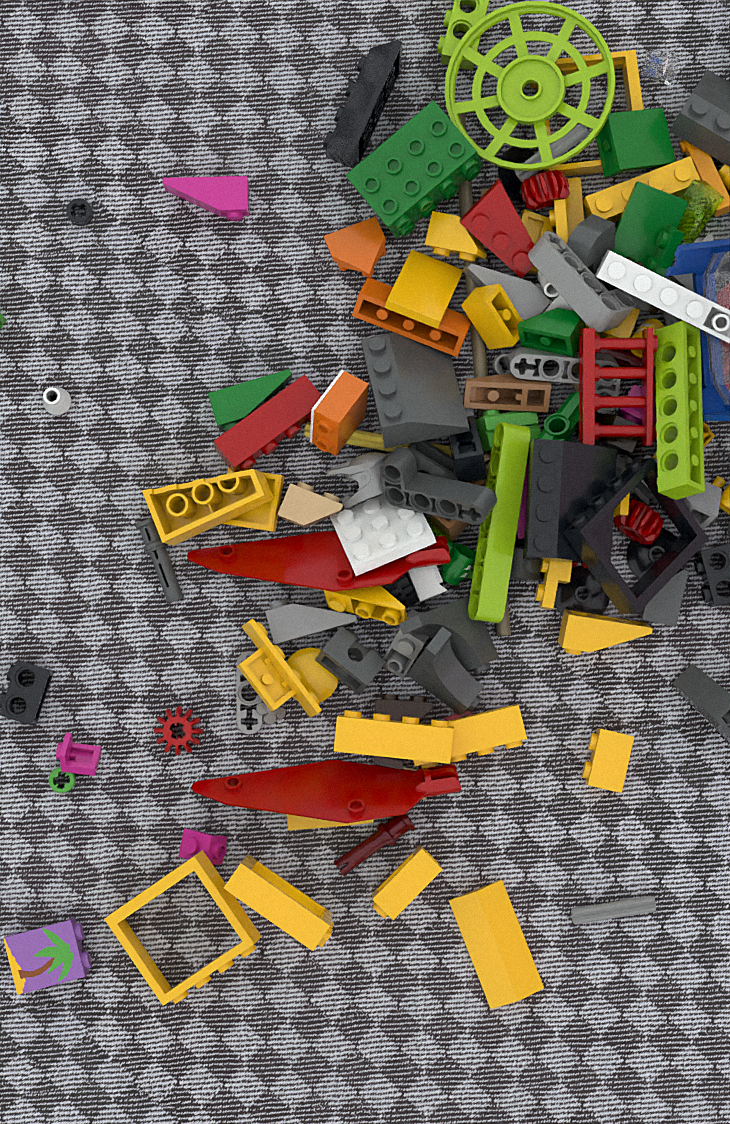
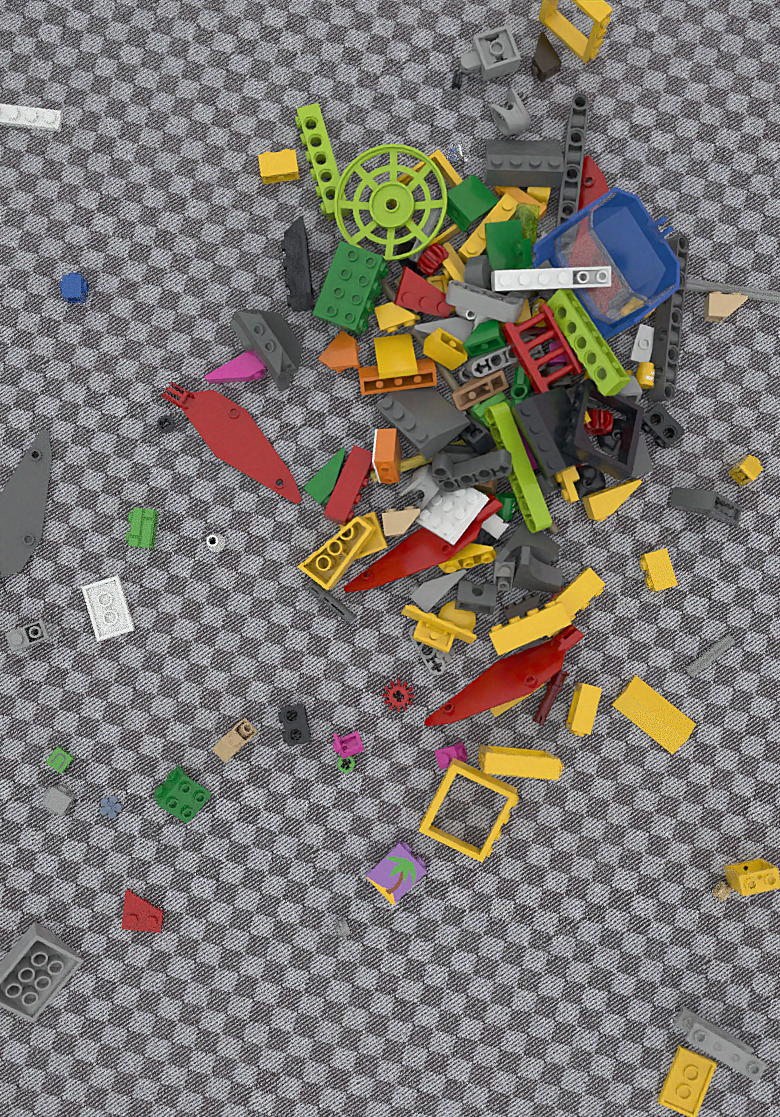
camera: 30 degrees left, 0 degrees up
(158, 280) = (234, 438): none -> red wing
(273, 179) = (271, 341): none -> dark grey slope

